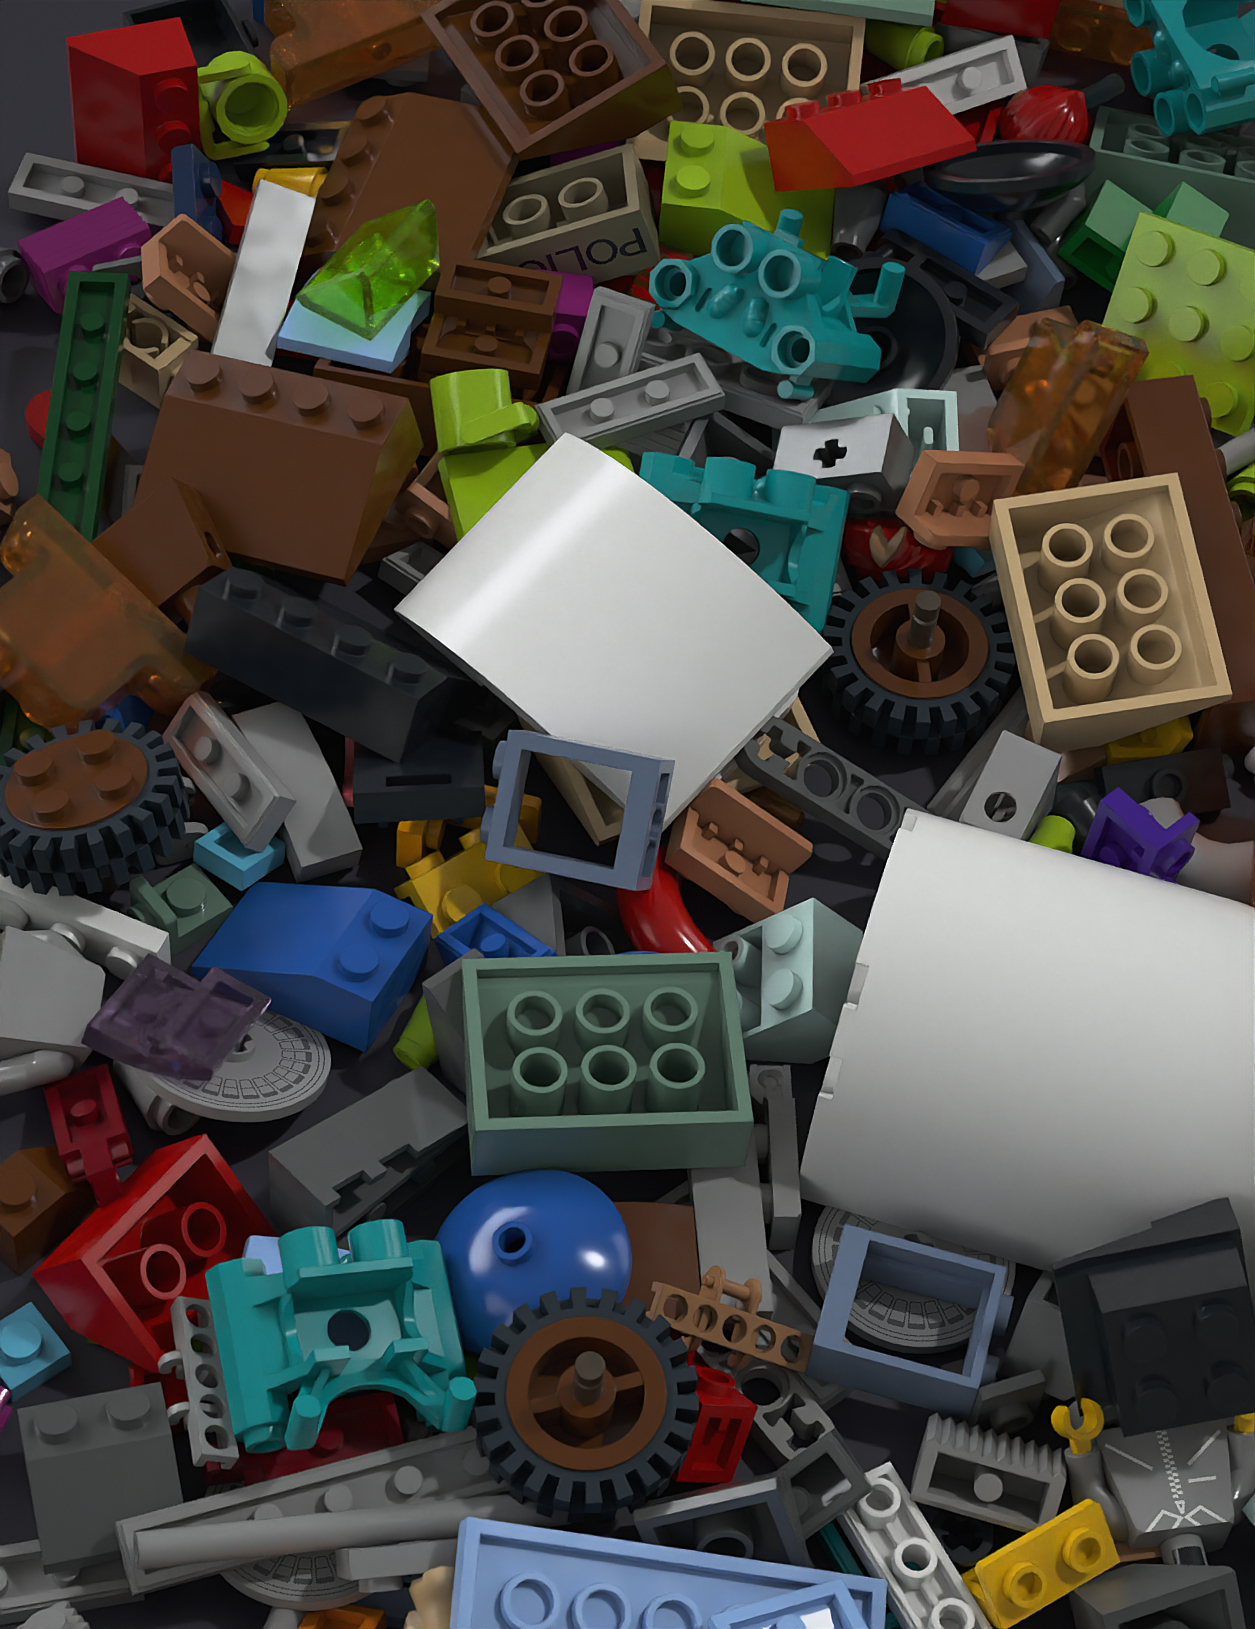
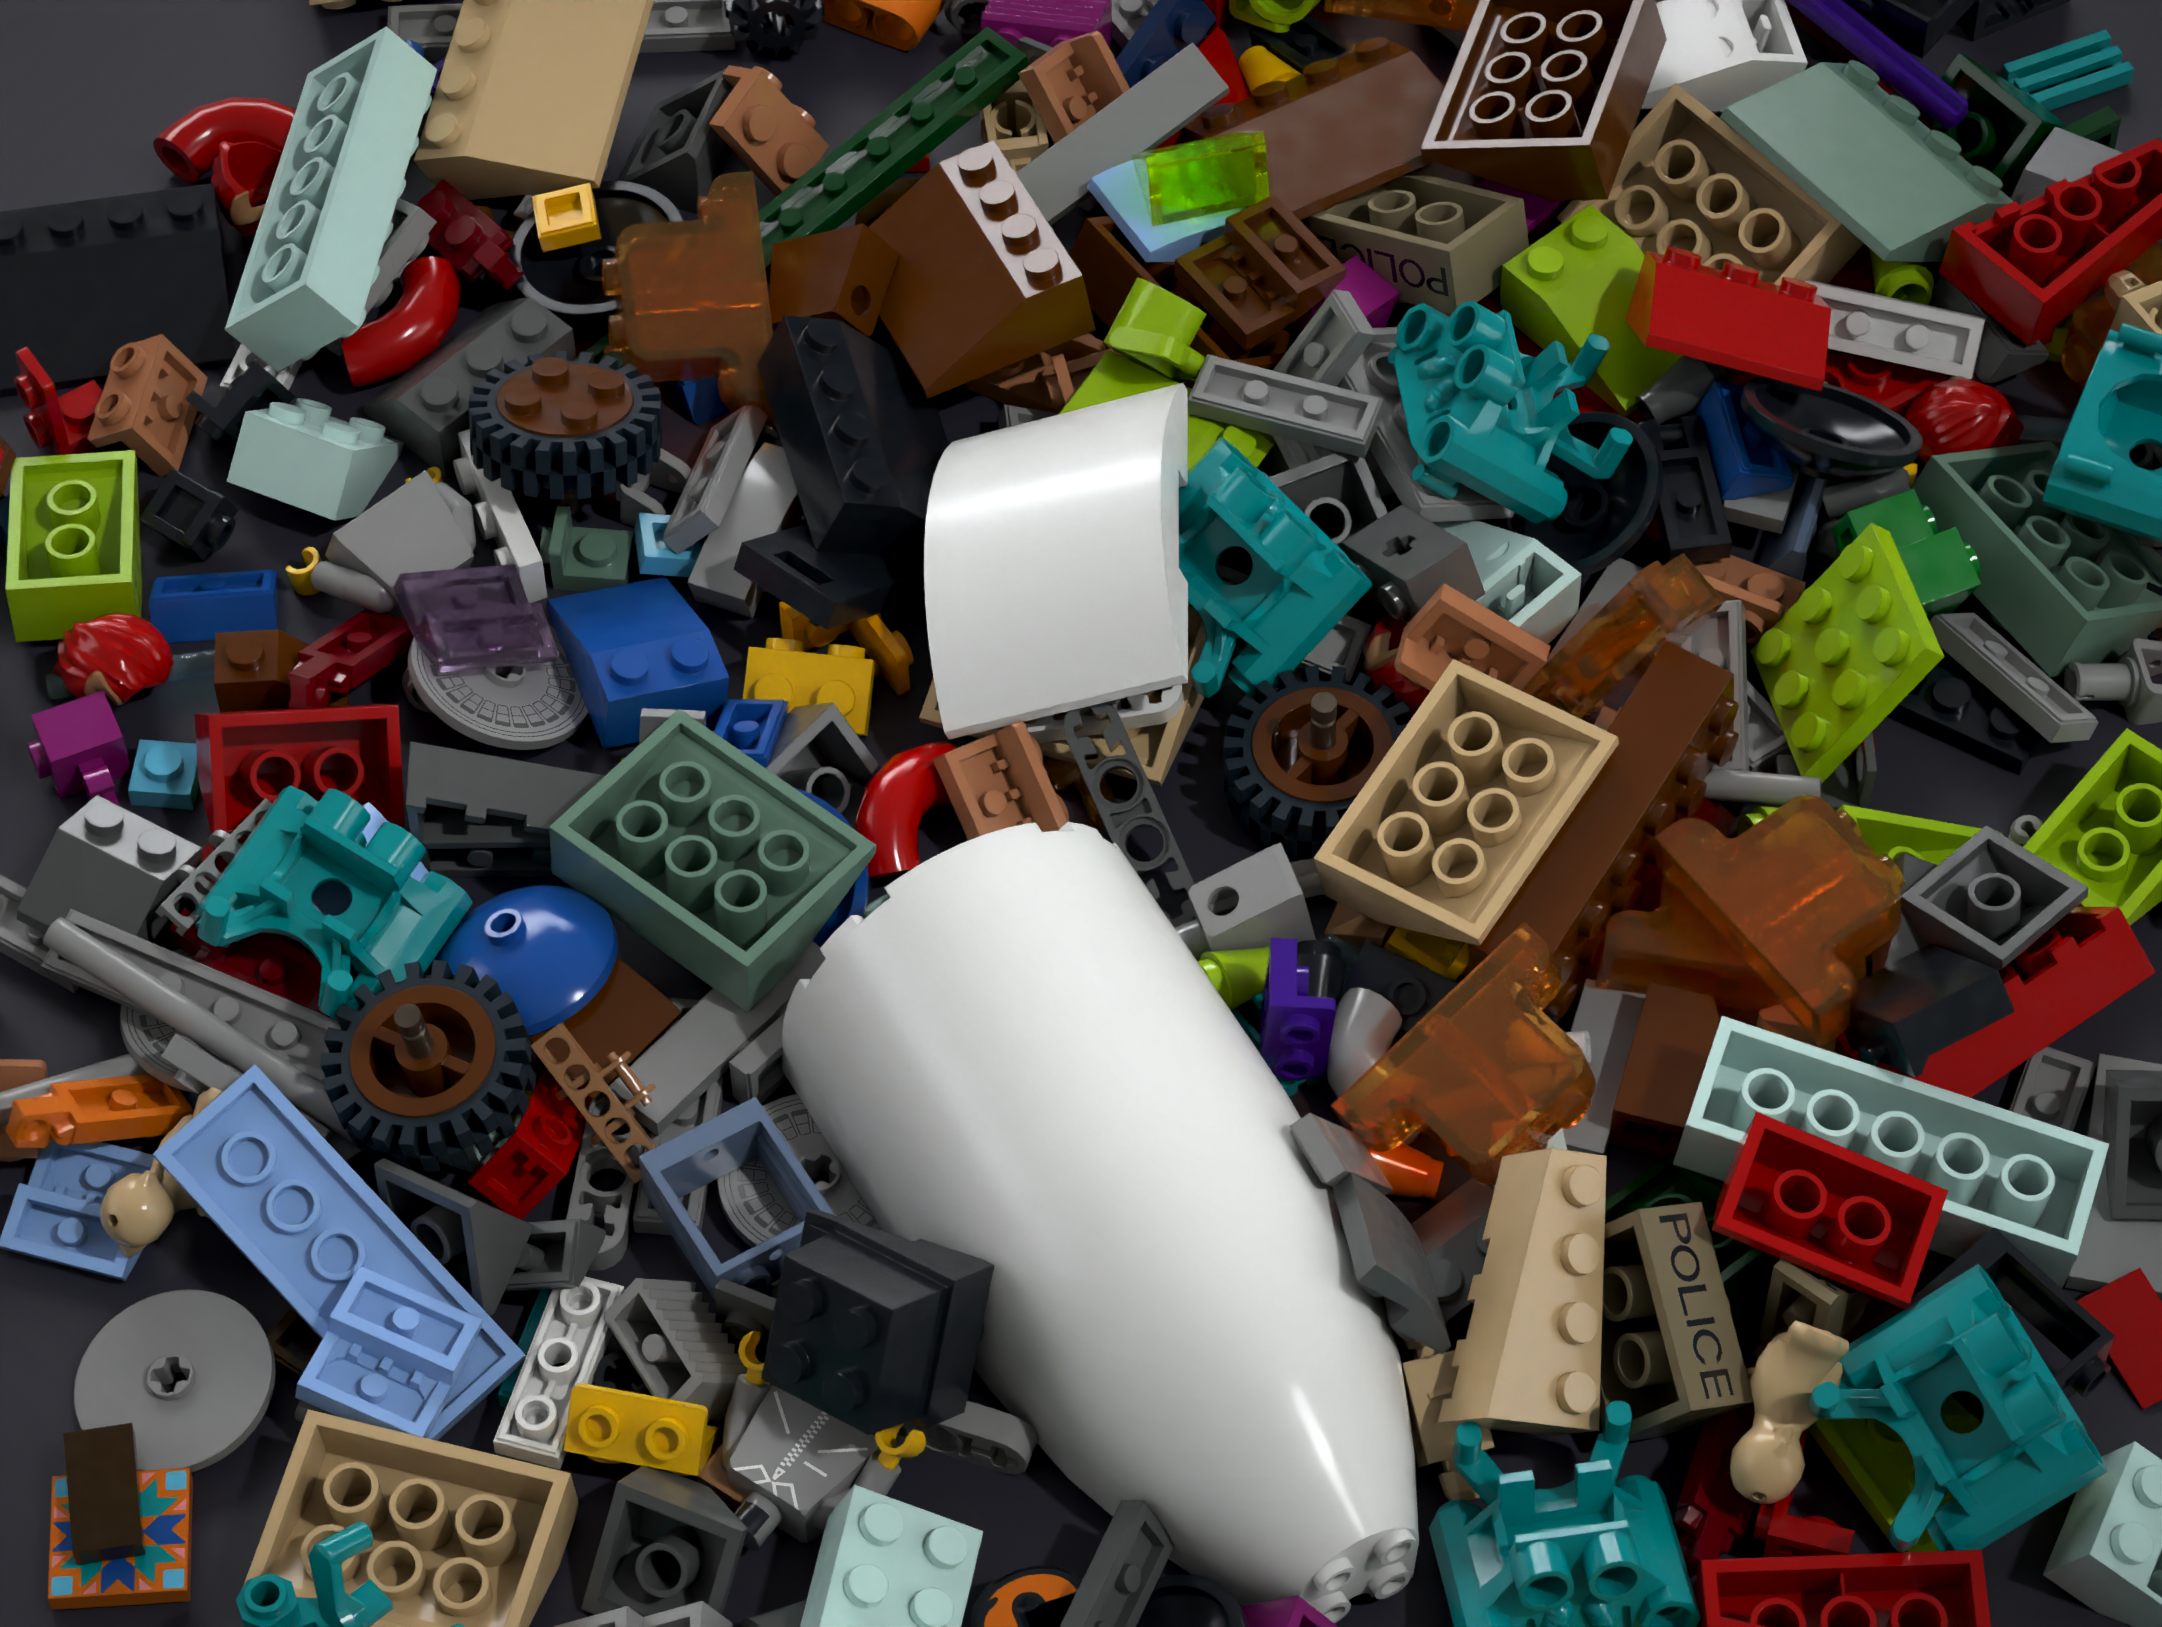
camera: 50 degrees right, 0 degrees up
(641, 820) = (937, 679): sand blue window -> none

